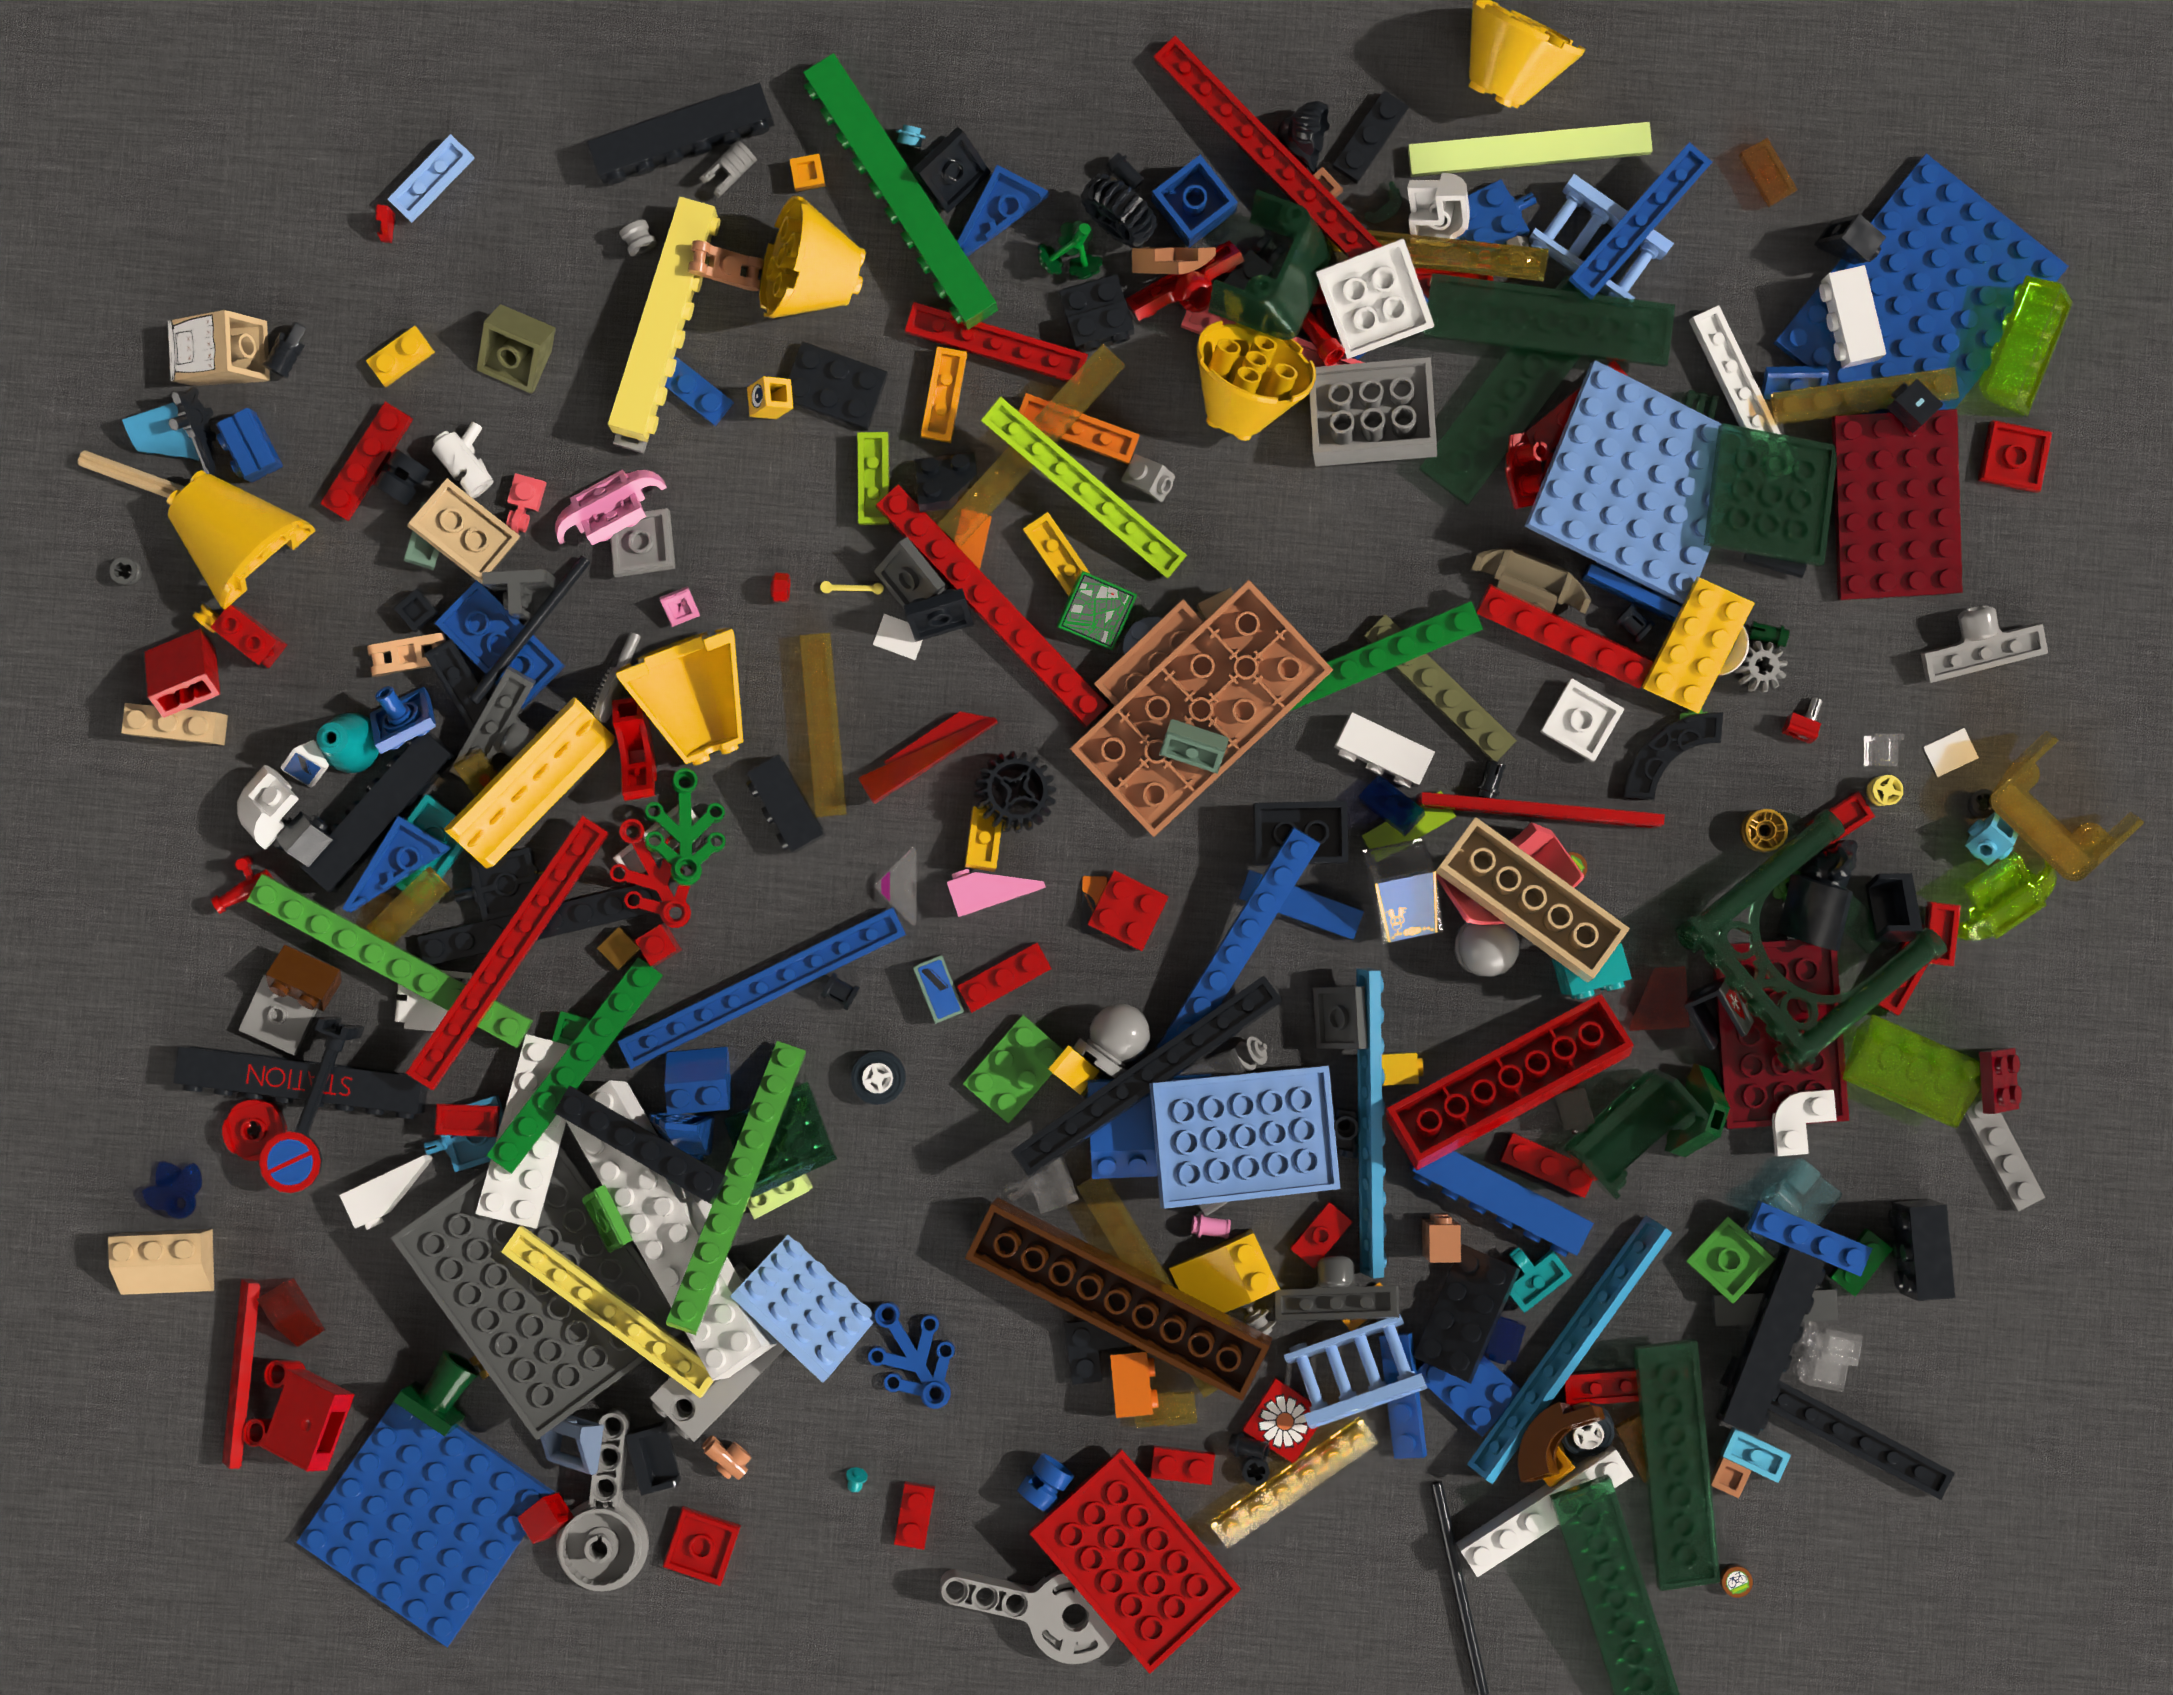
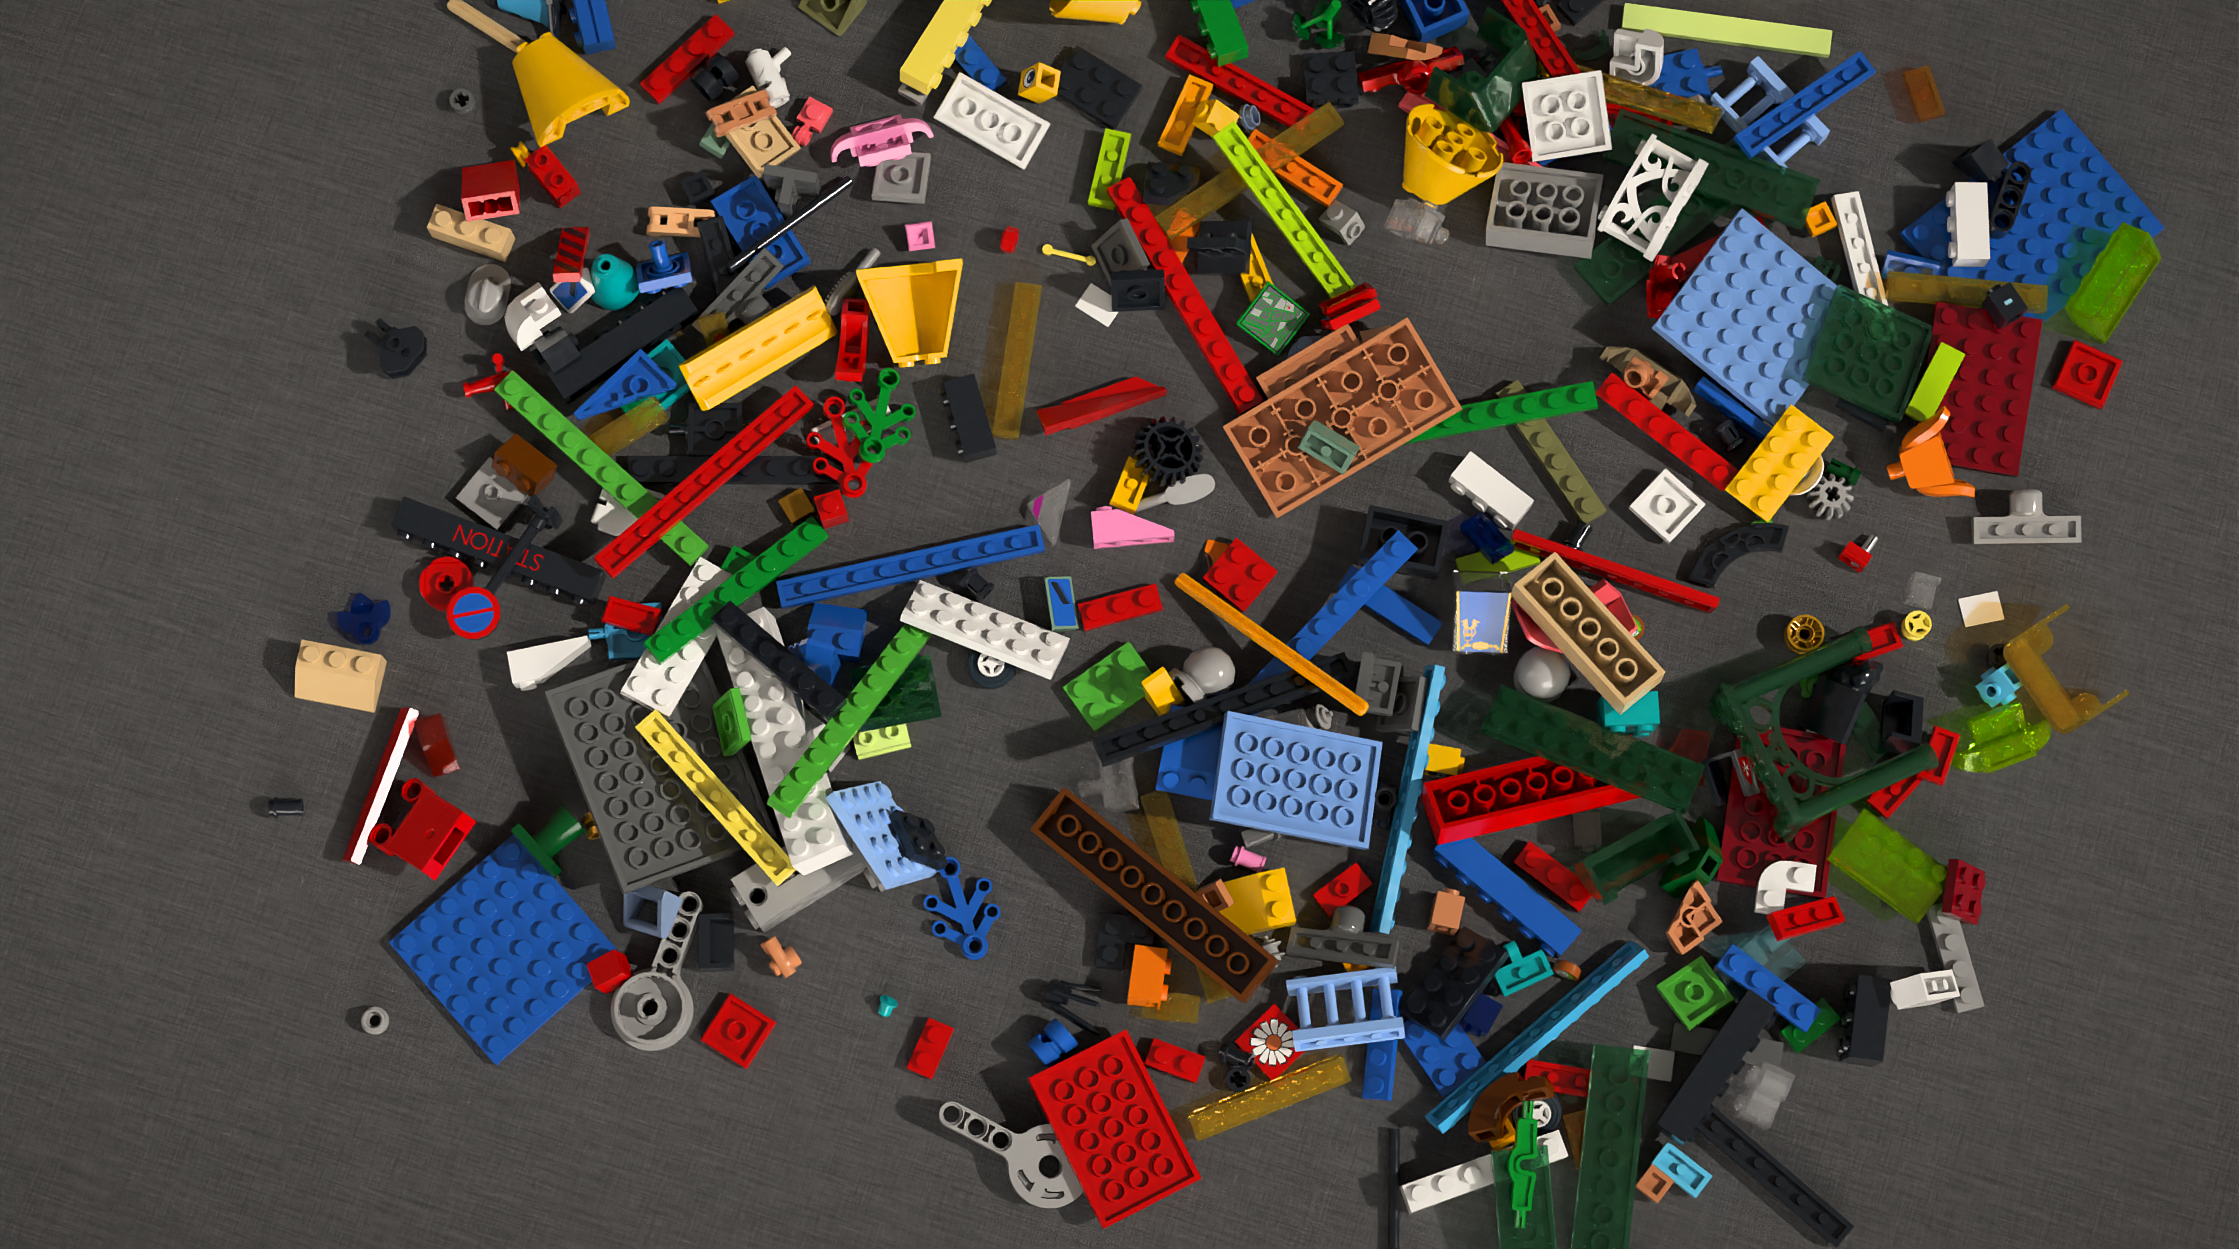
camera: 10 degrees right, 10 degrees down
(129, 877) = (397, 346): none -> black hinge
(144, 1420) = (285, 807): none -> black pin
(213, 787) = (487, 294): none -> light grey piece
(291, 728) = (571, 254): none -> red tile
(298, 1636) = (369, 1014): none -> light grey plate
(441, 516) = (741, 113): none -> nougat plate
(727, 453) = (991, 120): none -> white tile
(845, 1298) = (918, 839): none -> black plate
(861, 1042) = (984, 629): none -> white plate
(977, 391) = (1213, 116): none -> yellow brick
(1015, 380) = (1249, 117): none -> sand blue plate
(1022, 541) = (1223, 247): none -> black bracket
(1041, 1426) = (1061, 993): none -> black plant
(1055, 825) = (1194, 488): none -> light grey piece
(1176, 570) = (1348, 300): none -> red tile
(1182, 586) = (1350, 315): none -> tile
(1183, 987) = (1272, 644): none -> light orange axle
(1185, 1279) = (1216, 895): none -> nougat plate
(1232, 461) = (1416, 221): none -> clear brick
(1309, 1005) = (1378, 684): none -> dark grey bracket
(1506, 411) = (1654, 232): none -> white fence
(1524, 581) = (1642, 375): none -> nougat plate
(1564, 1023) = (1592, 749): none -> clear green plate
(1584, 1266) = (1566, 970): none -> dark orange tile
(1586, 1491) = (1523, 1179): none -> green piece
(1683, 348) = (1820, 219): none -> light orange plate
(1707, 1337) = (1660, 1063): none -> white sticker
(1710, 1181) = (1692, 920): none -> nougat slope
(1834, 1151) = (1805, 918): none -> red plate
(1852, 512) = (1934, 382): none -> lime tile
(1860, 602) = (1927, 462): none -> orange torso
(1899, 266) = (2013, 189): none -> black beam
(1982, 1204) = (1924, 989): none -> white brick

